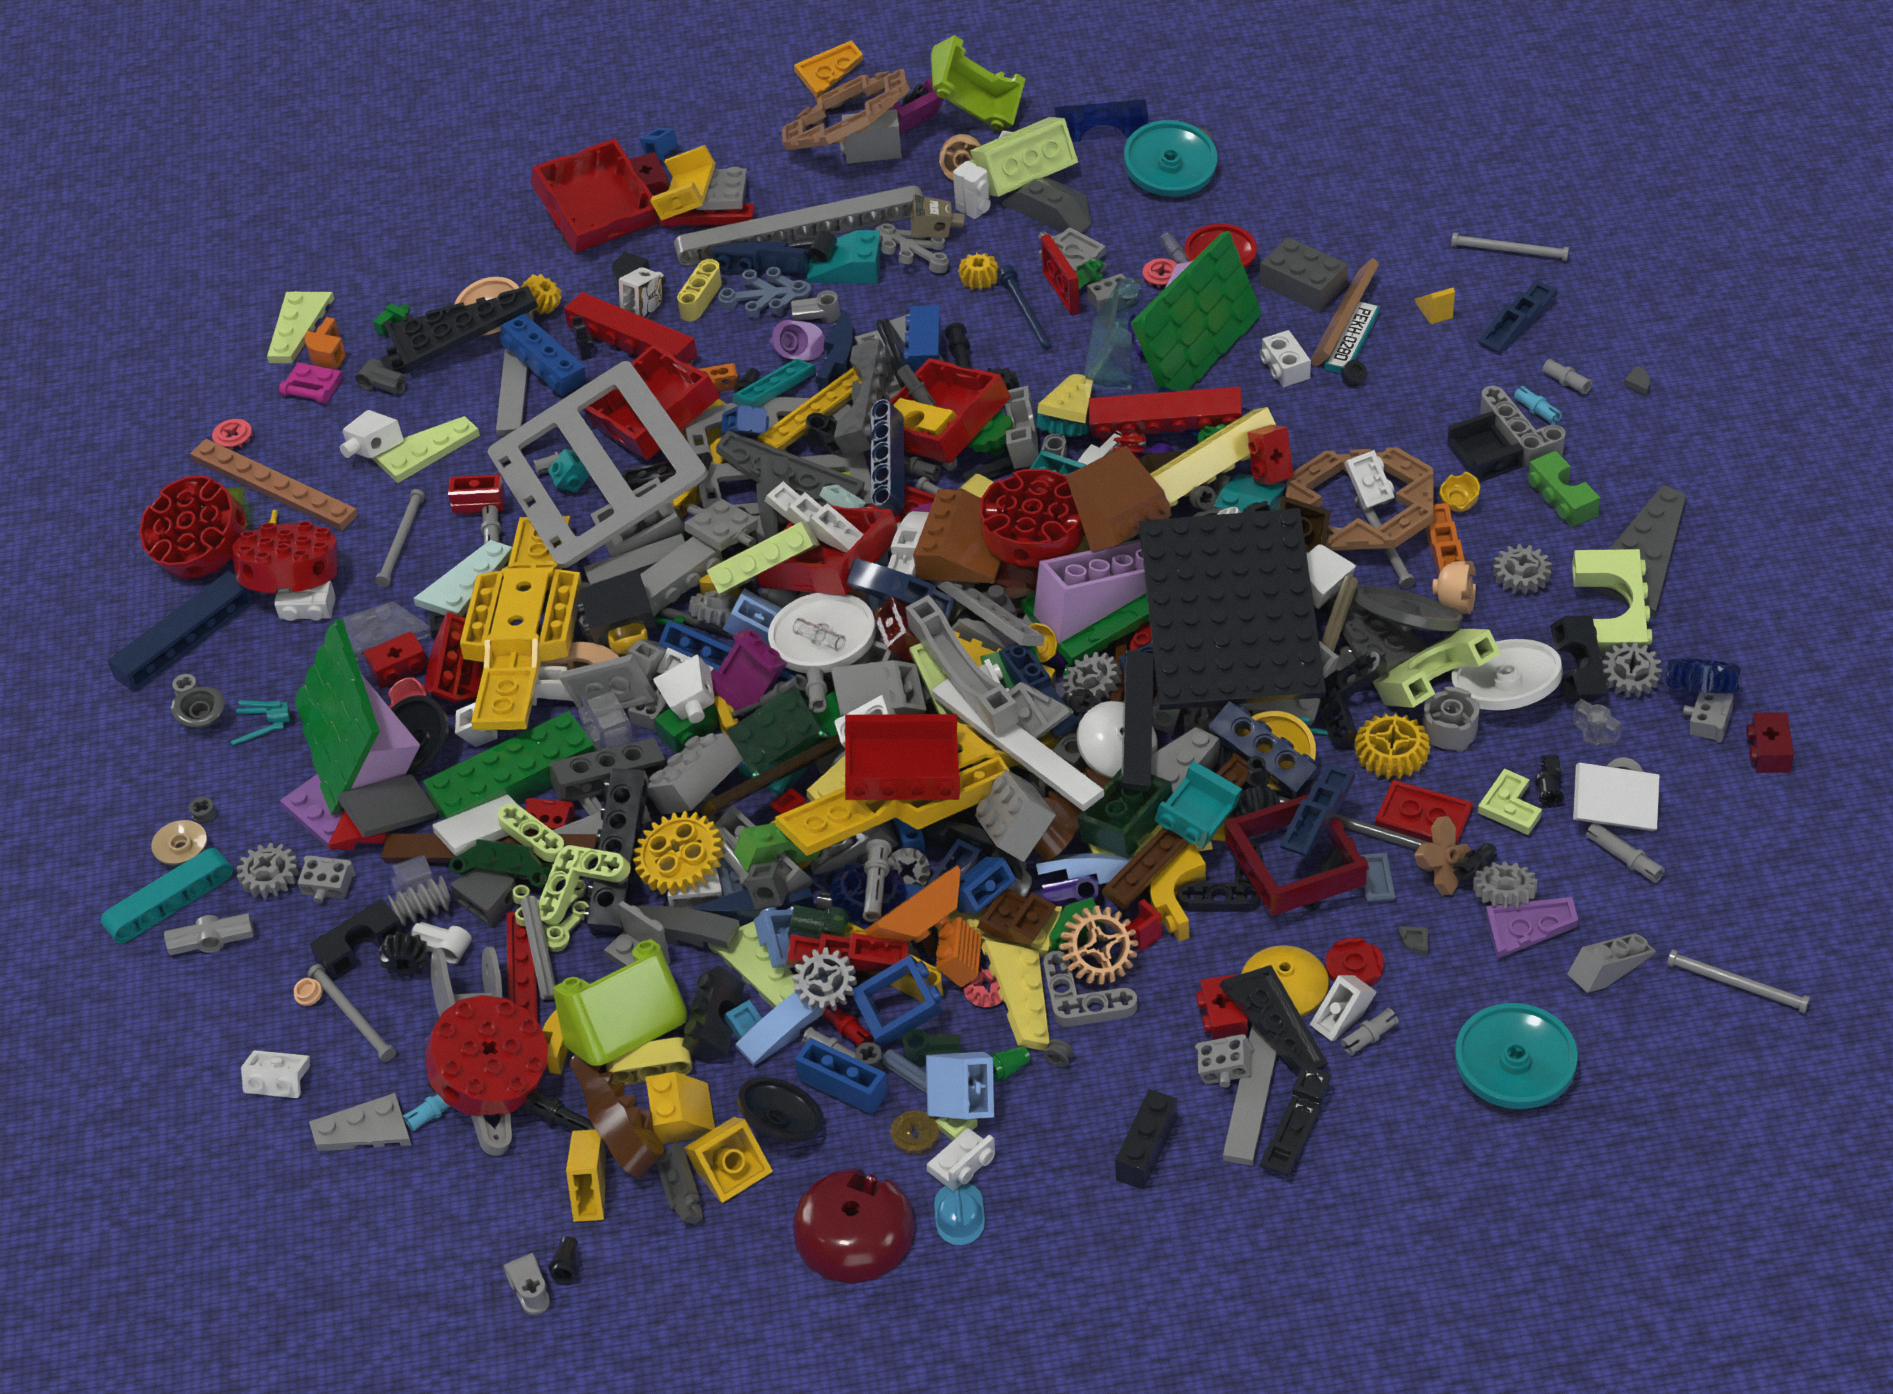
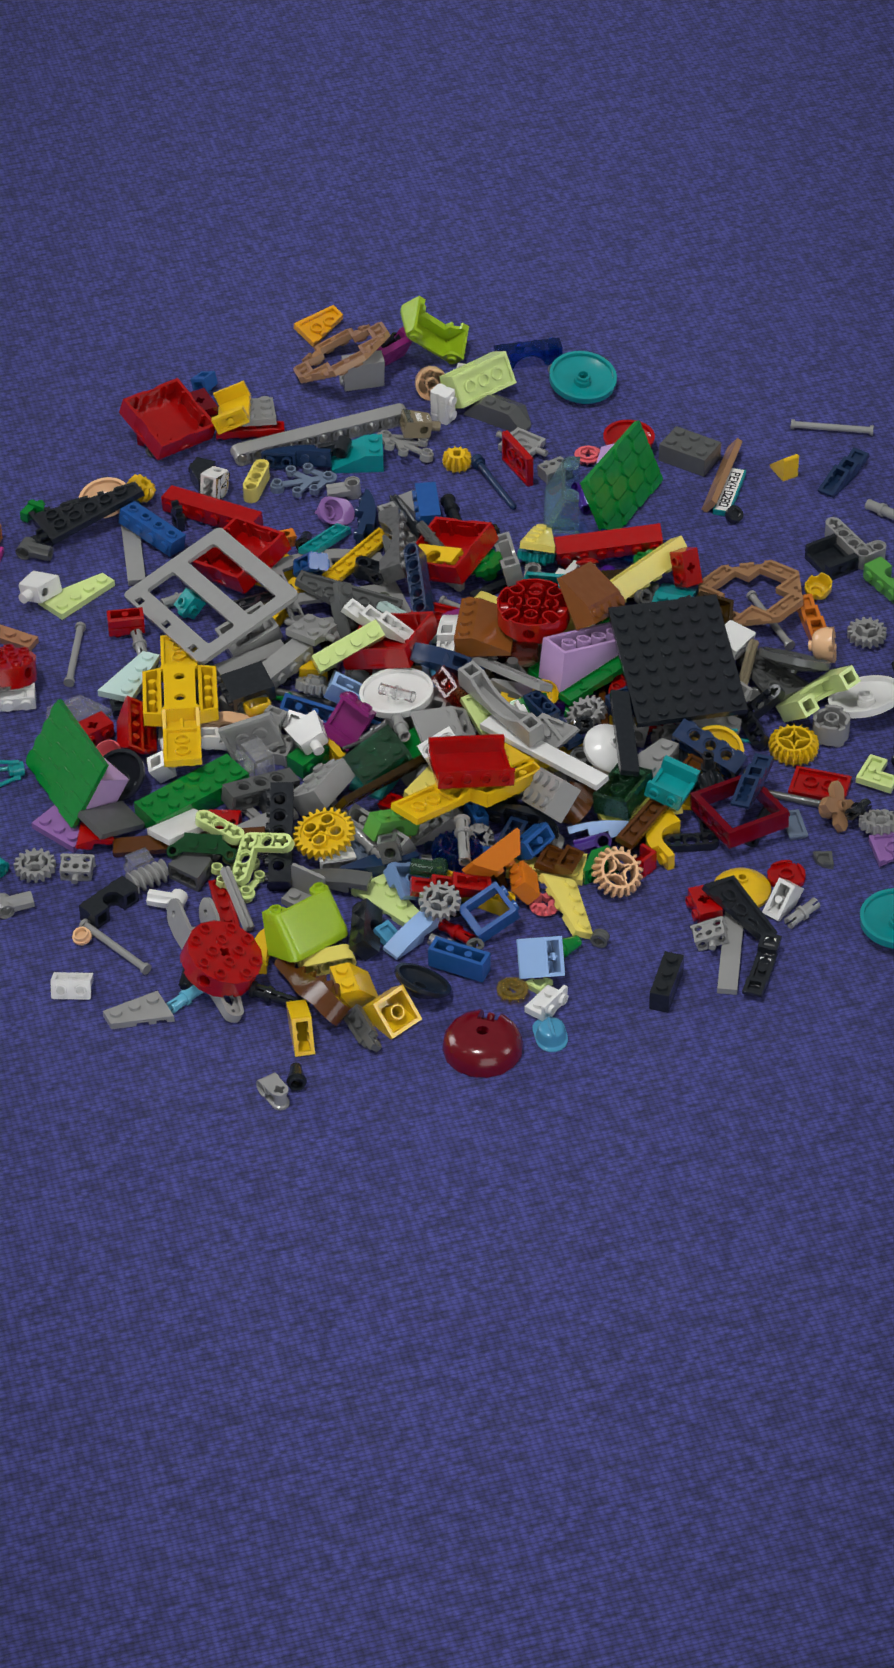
camera: 10 degrees left, 5 degrees down
(404, 954) = (145, 907): black gear -> none
(905, 1069) = (502, 955): sand blue axle -> none
(917, 467) = (438, 590): dark grey pin -> none
(918, 1044) = (507, 938): piece -> none
(1071, 1001) = (604, 909): light grey beam -> none
(1088, 272) = (538, 455): green piece -> none
(1175, 251) = (595, 439): clear pin -> none
(1285, 358) = (685, 507): white brick -> none
(1369, 480) = (756, 580): white bracket -> none
(1538, 405) = (864, 529): medium azure pin -> none

